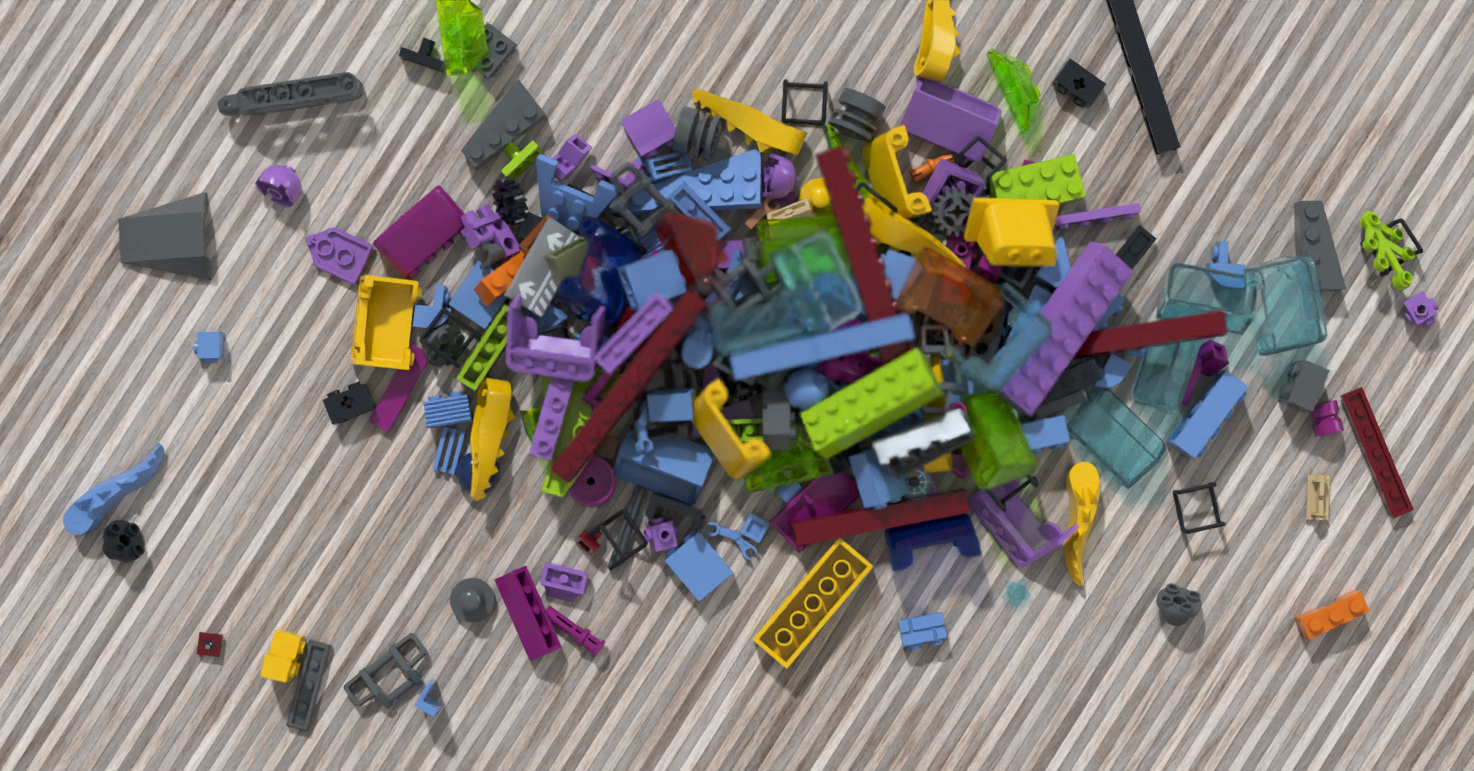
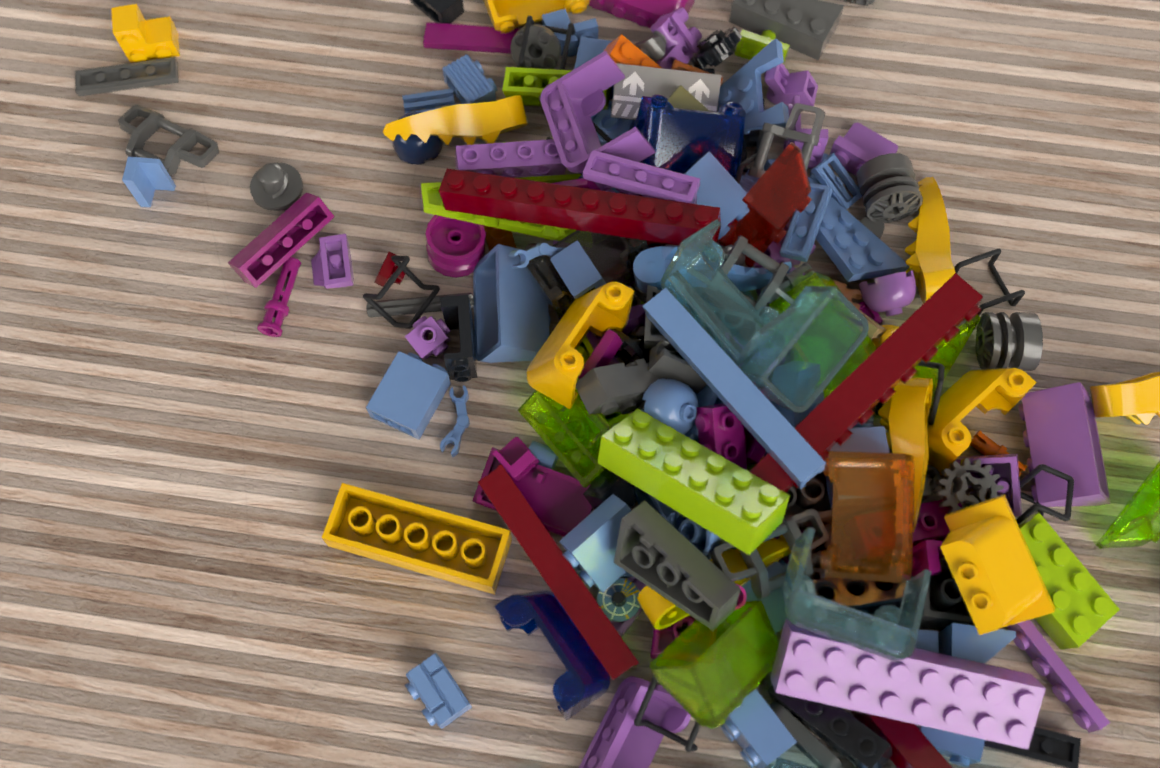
camera: 65 degrees right, 20 degrees down
(746, 420) = (603, 352): none -> magenta tile
(754, 528) = (479, 437): medium blue plate -> none
(788, 510) = (516, 458): none -> magenta panel

